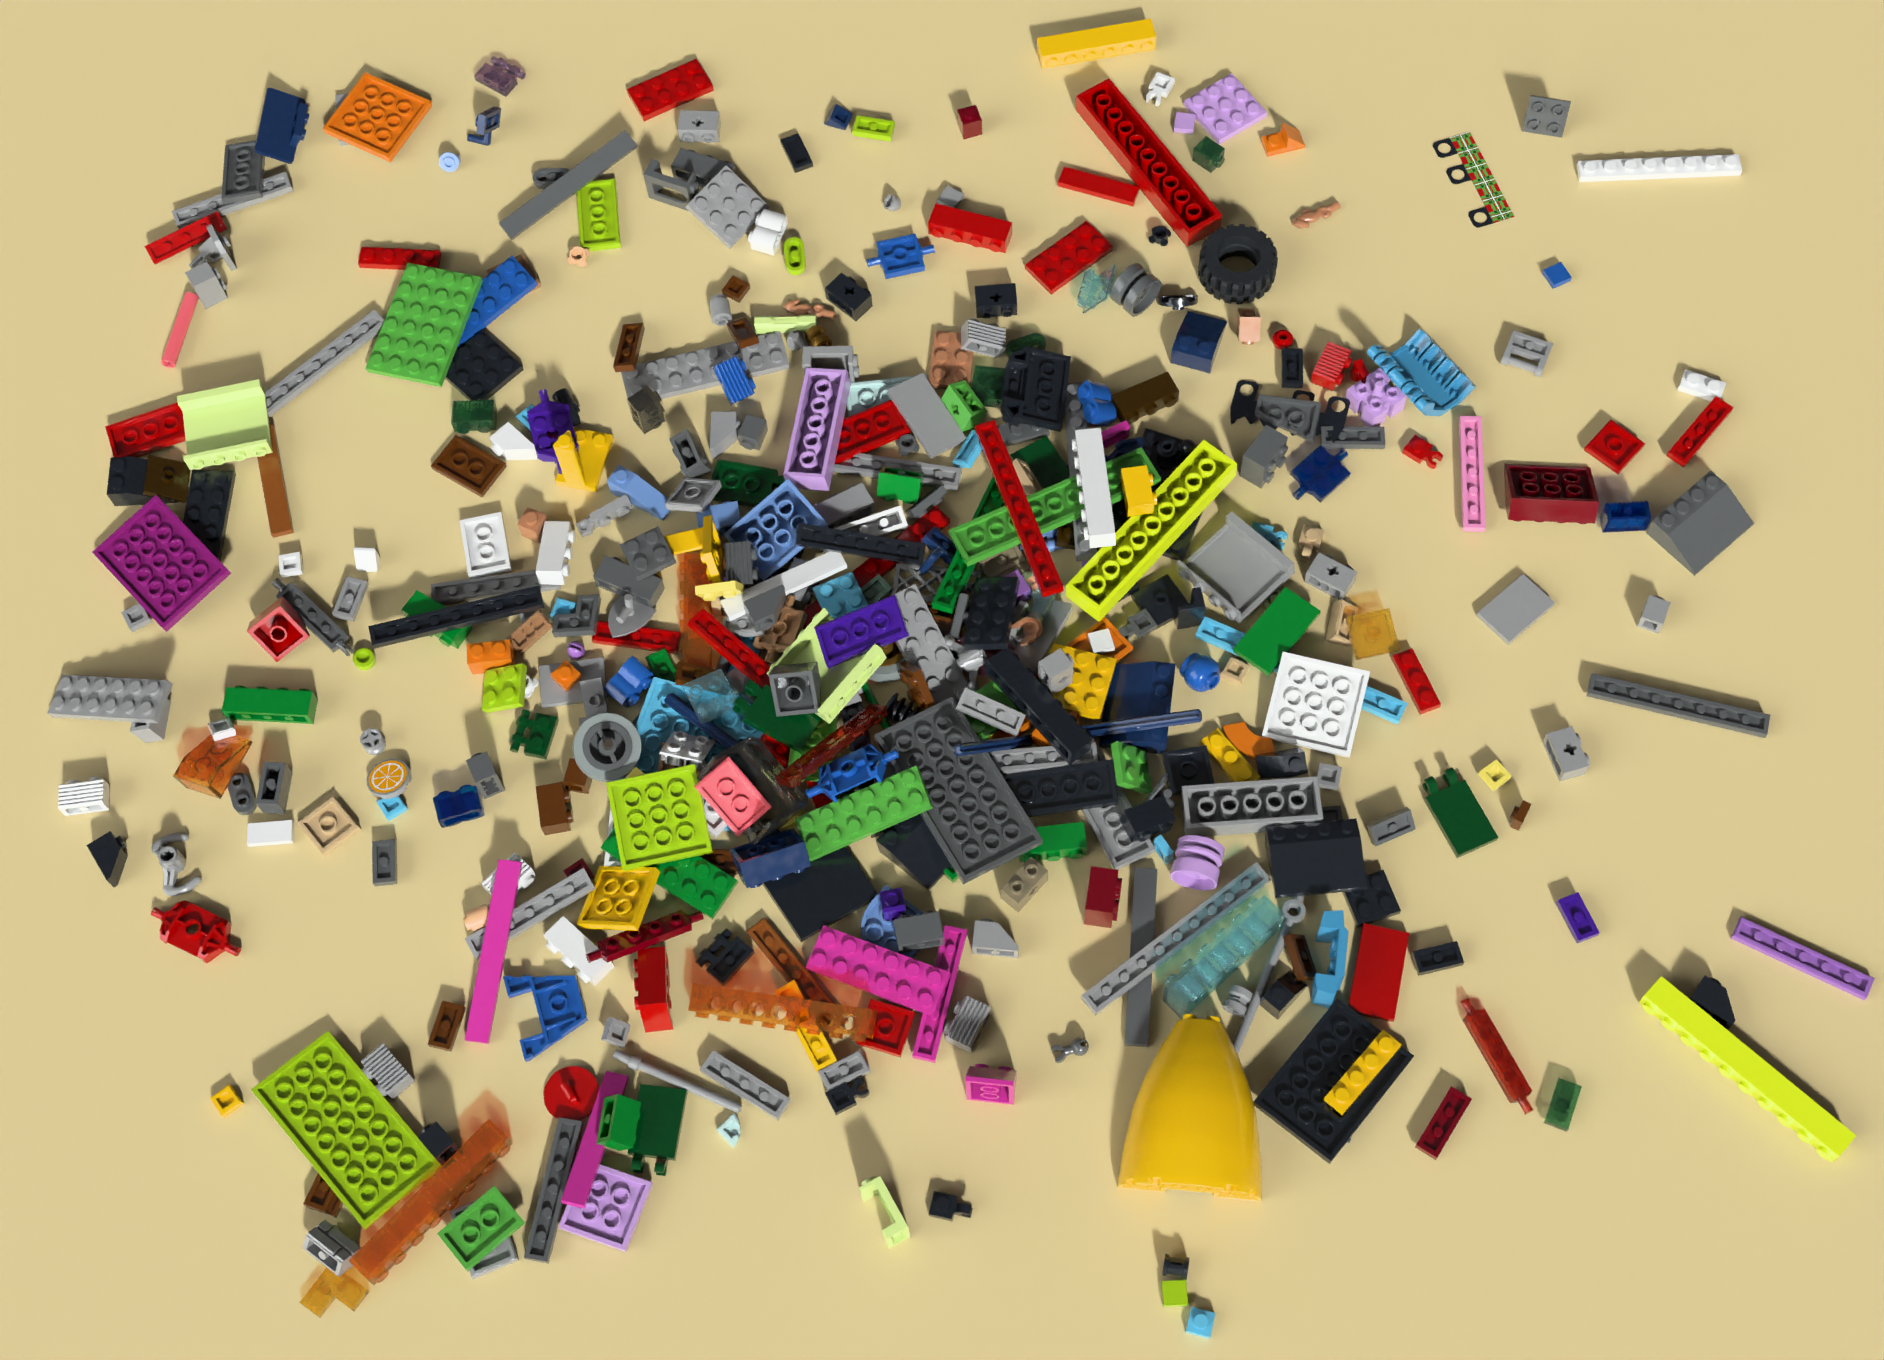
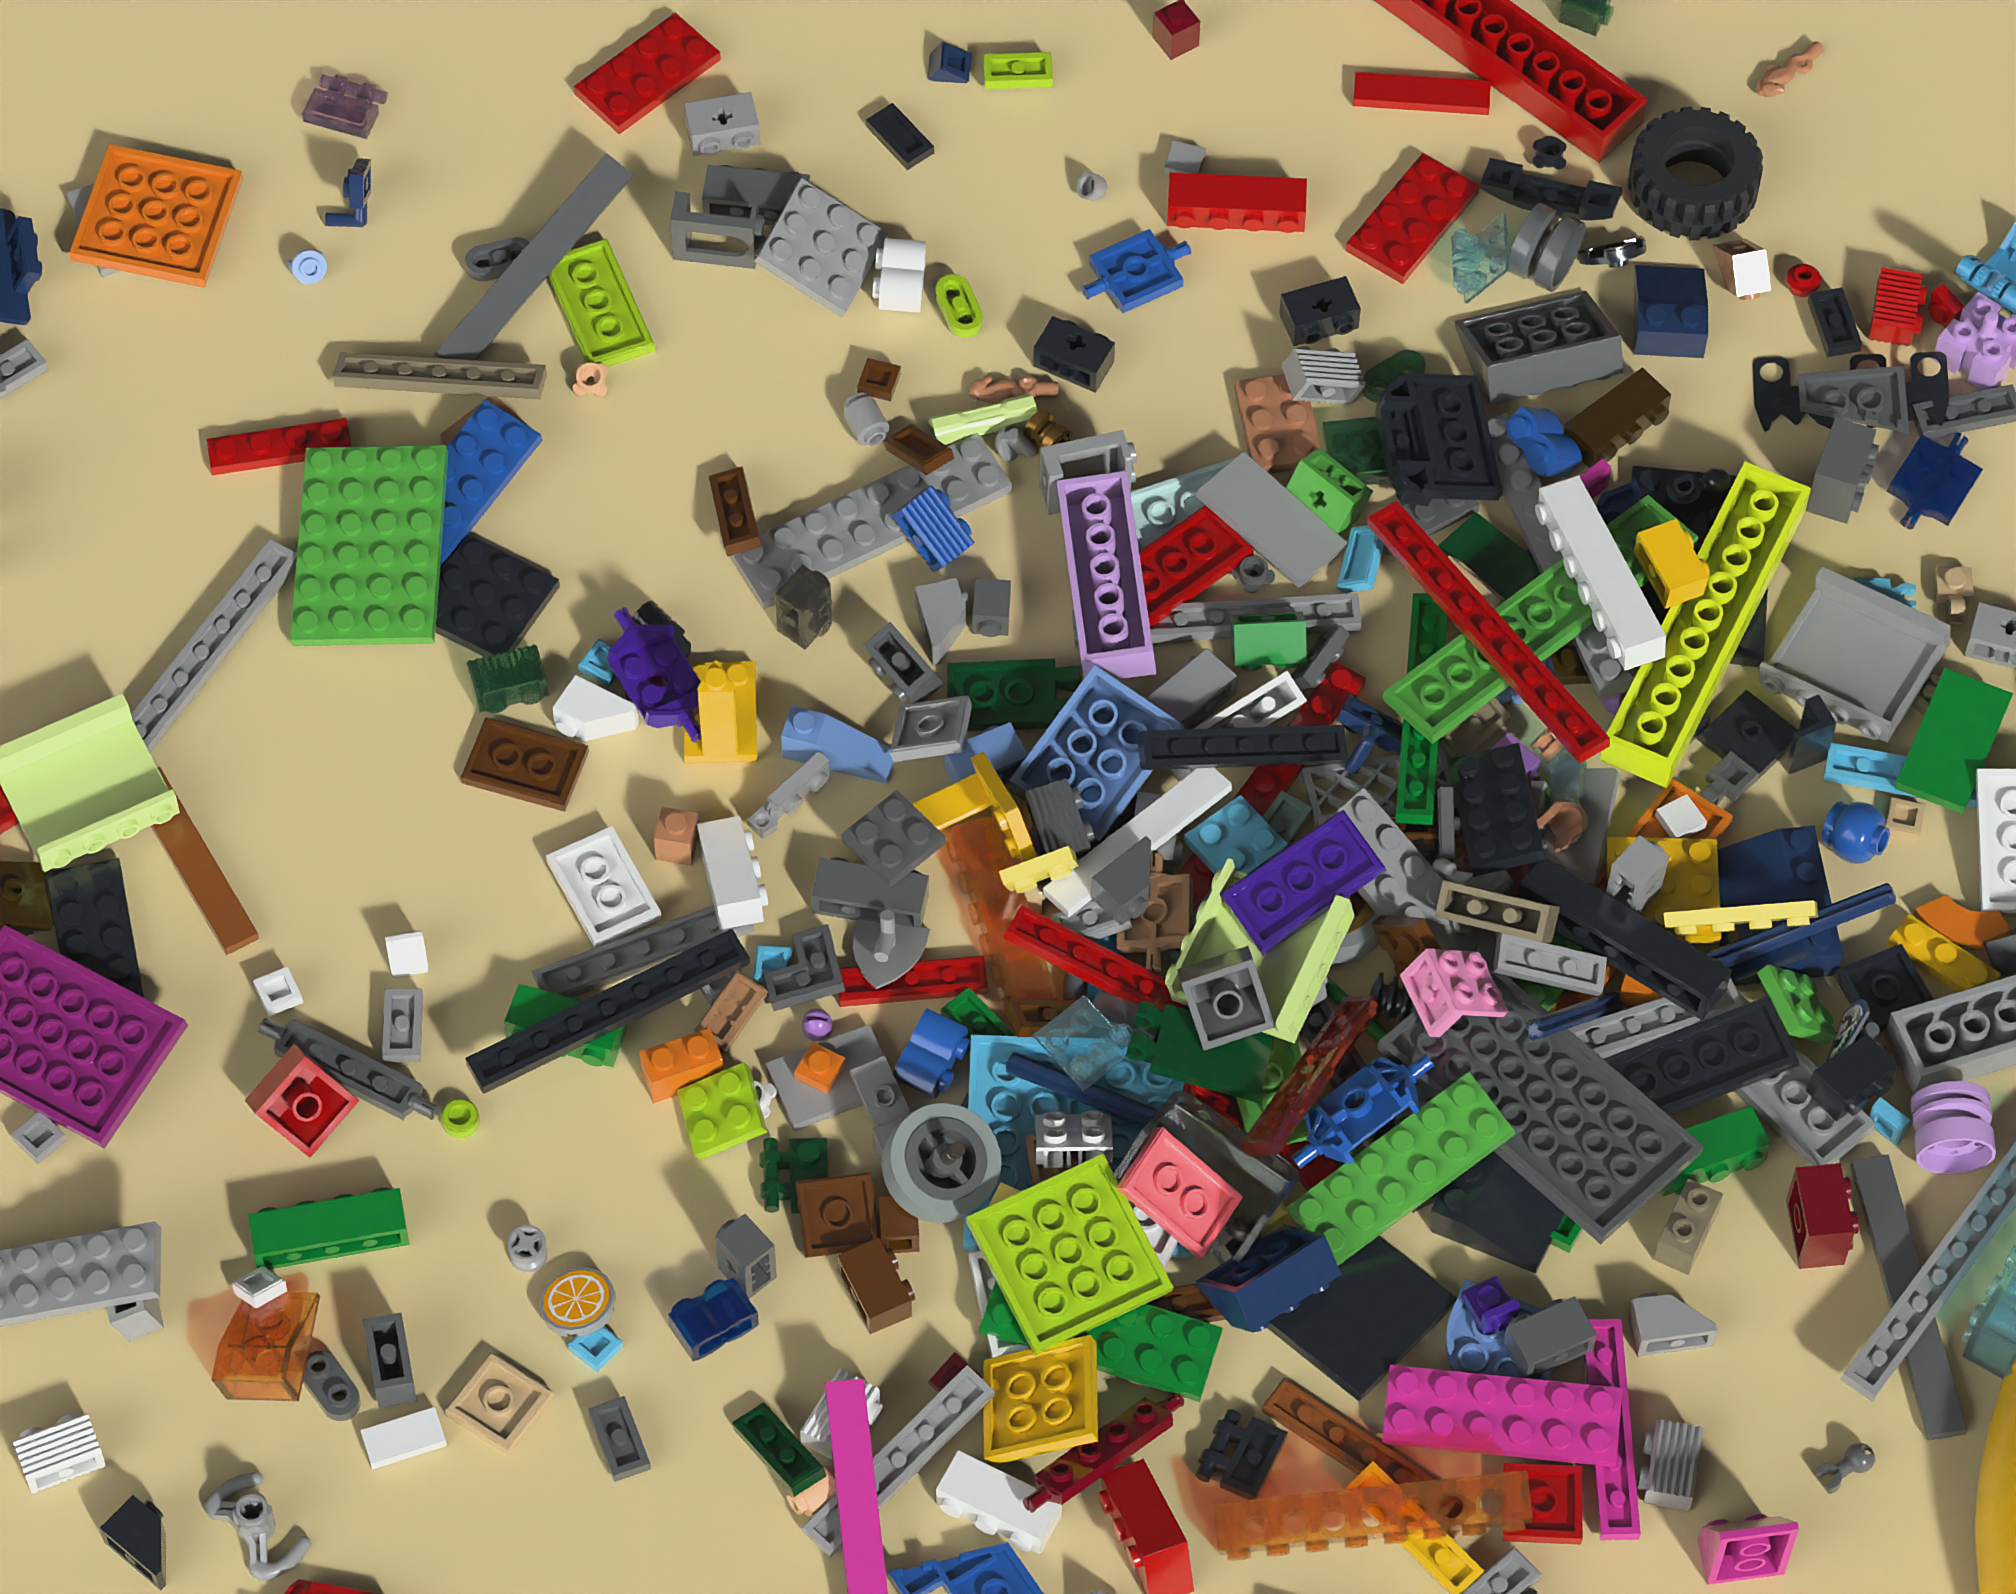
camera: 20 degrees left, 5 degrees down
(467, 890) = (779, 1449): none -> dark green tile
(496, 237) = (439, 375): none -> dark tan plate
(545, 761) = (836, 1213): none -> reddish brown plate
(926, 712) = (1449, 986): none -> bright pink bracket
(967, 674) = (1497, 911): none -> dark tan brick
(1100, 708) = (1756, 915): none -> light yellow plate
(1115, 347) = (1540, 347): none -> dark grey slope
(1152, 261) = (1525, 191): none -> black slope

